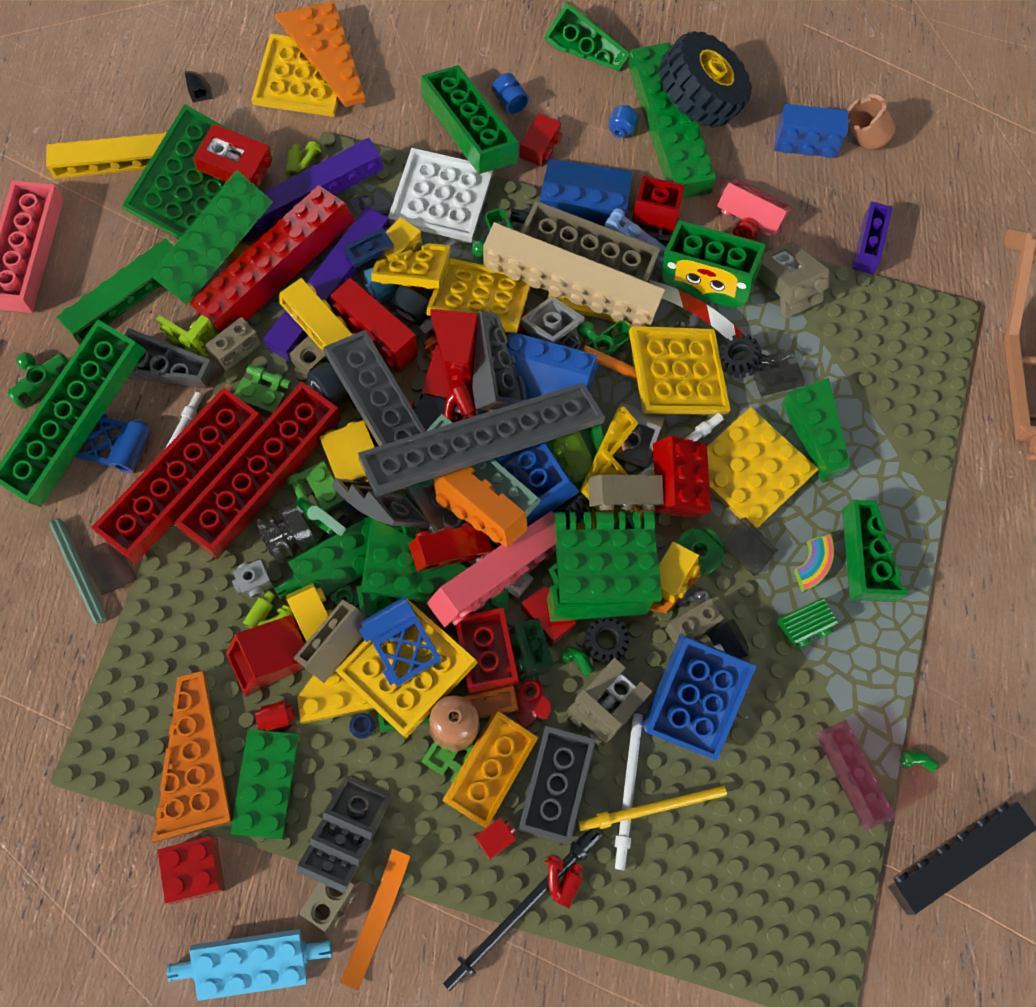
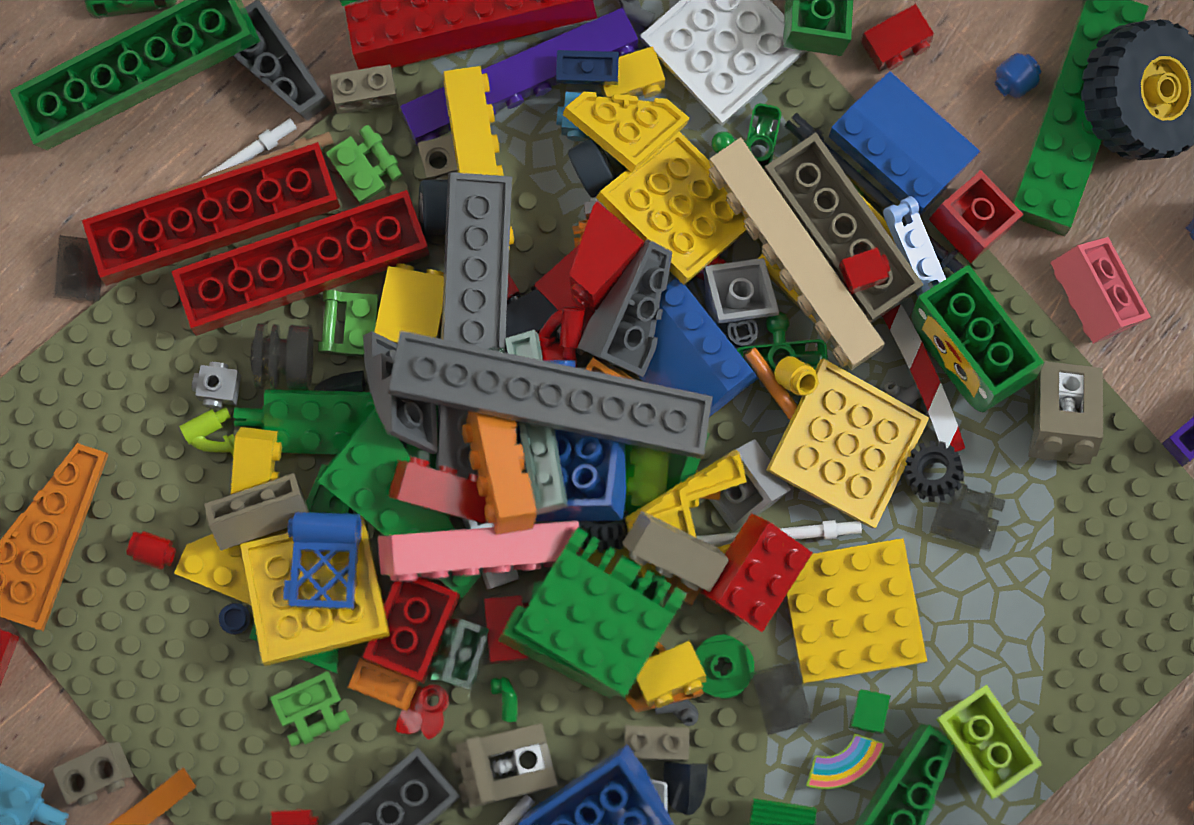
camera: 35 degrees right, 10 degrees up
(78, 571) = (44, 252): sand green axle -> none
(126, 447) = (178, 138): blue piece -> none
(194, 340) = (332, 58): lime bracket -> none
(265, 654) = (182, 477): red slope -> none
(265, 784) = (99, 615): green plate -> none
(319, 516) = (329, 362): plate -> none
(344, 834) = (146, 719): dark grey slope -> none
(345, 591) = (308, 461): green plate -> none
(362, 312) = (534, 168): red brick -> none
(450, 734) = (337, 692): nougat cylinder -> none
(490, 769) = (335, 752): light orange plate -> none
(612, 626) = (555, 716): black tyre -> none
(622, 255) = (864, 270): none -> red brick
(623, 345) = (796, 376): none -> yellow brick
(748, 227) = (1060, 317): red wheel -> none
(810, 519) = (870, 712): none -> green panel
(818, 428) = (962, 610): green wedge -> none
(894, 487) = (988, 742): none -> lime slope

